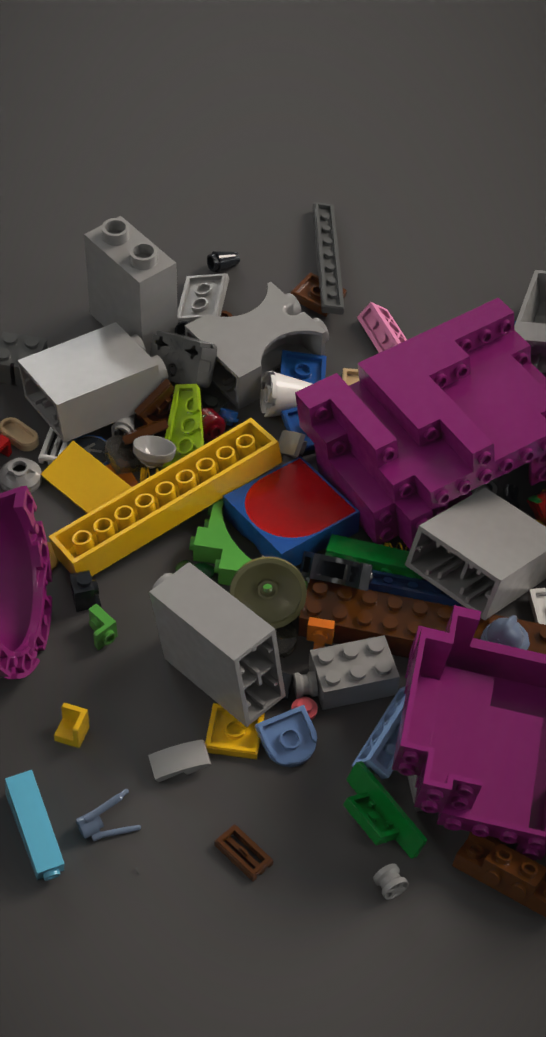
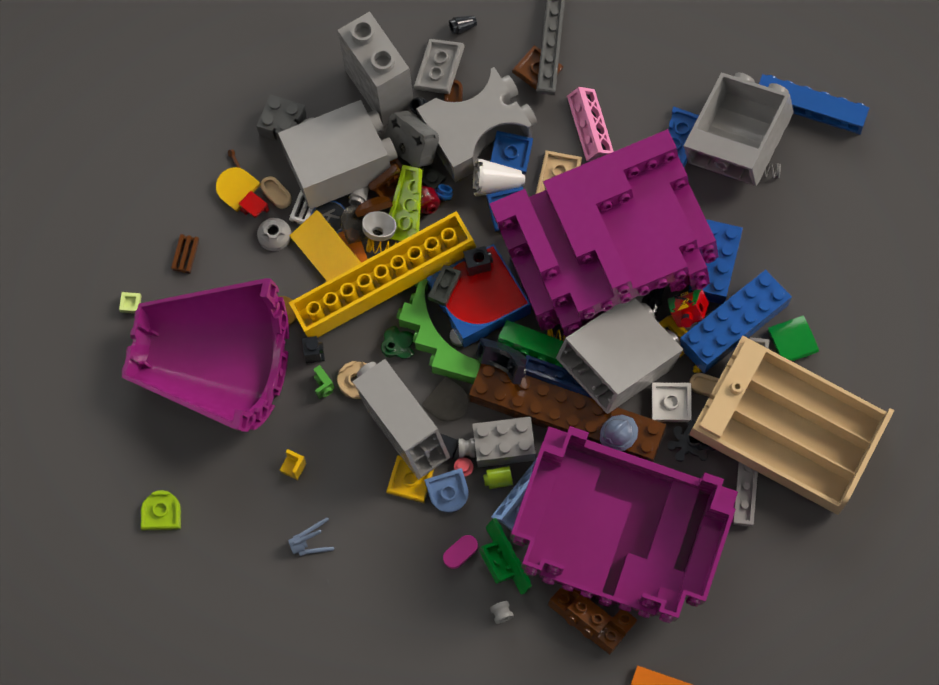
camera: 15 degrees right, 20 degrees up
(34, 825) = (259, 544): medium azure slope -> none
(135, 632) = (344, 379): none -> tan tile
(178, 759) = (367, 500): light grey slope -> none
(248, 498) = (444, 285): none -> pearl dark grey plate
(251, 873) = (413, 590): reddish brown tile -> none
(275, 605) = (447, 374): olive dish -> none
(285, 469) = (477, 267): none -> black brick
(292, 443) = (488, 230): light grey slope -> none
(318, 812) = (460, 551): none -> dark pink tile
(320, 631) = (483, 409): orange plate -> none
(354, 715) = (498, 477): none -> lime brick

